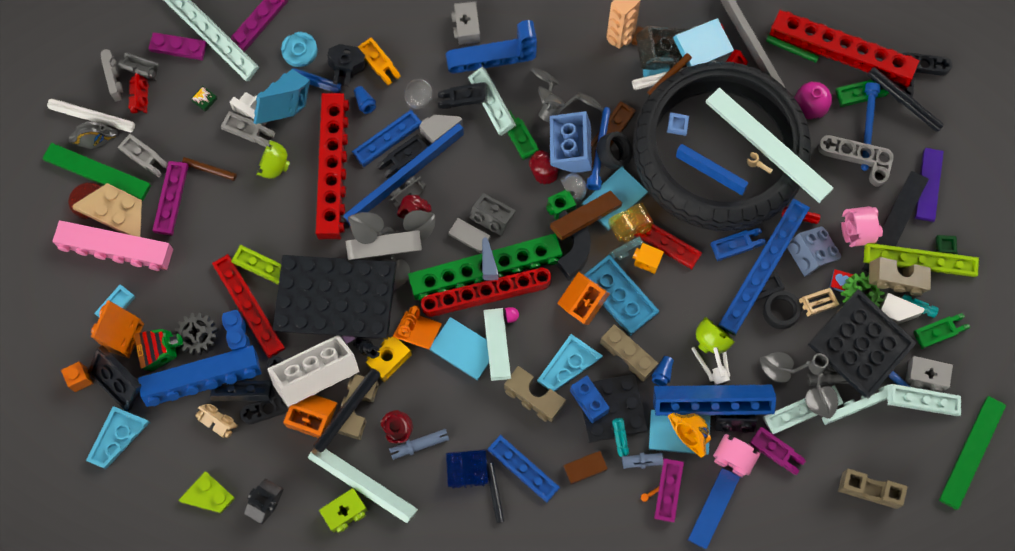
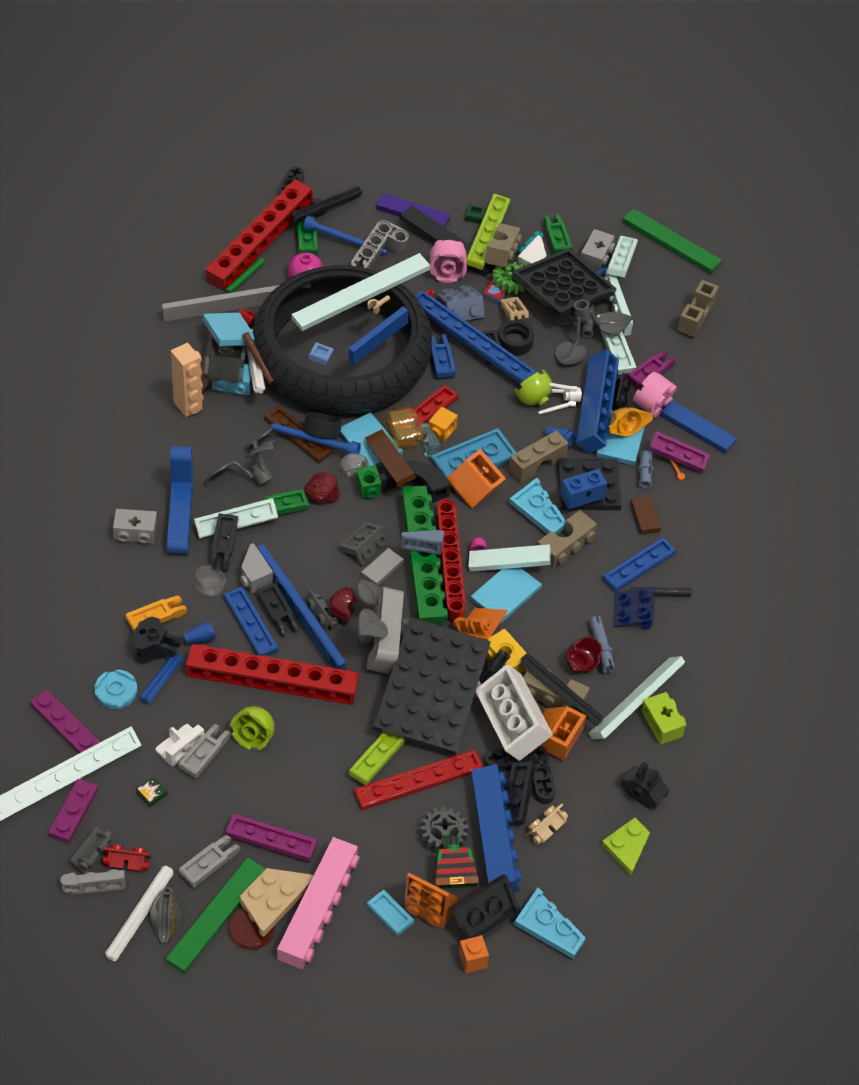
camera: 85 degrees left, 20 degrees down
(210, 169) = (243, 796): reddish brown bar -> none
(236, 330) = (451, 789): blue brick -> none
(282, 98) = (181, 695): dark azure slope -> none
(571, 142) = (305, 454): medium blue slope -> none
(620, 436) = (622, 477): teal axle -> none

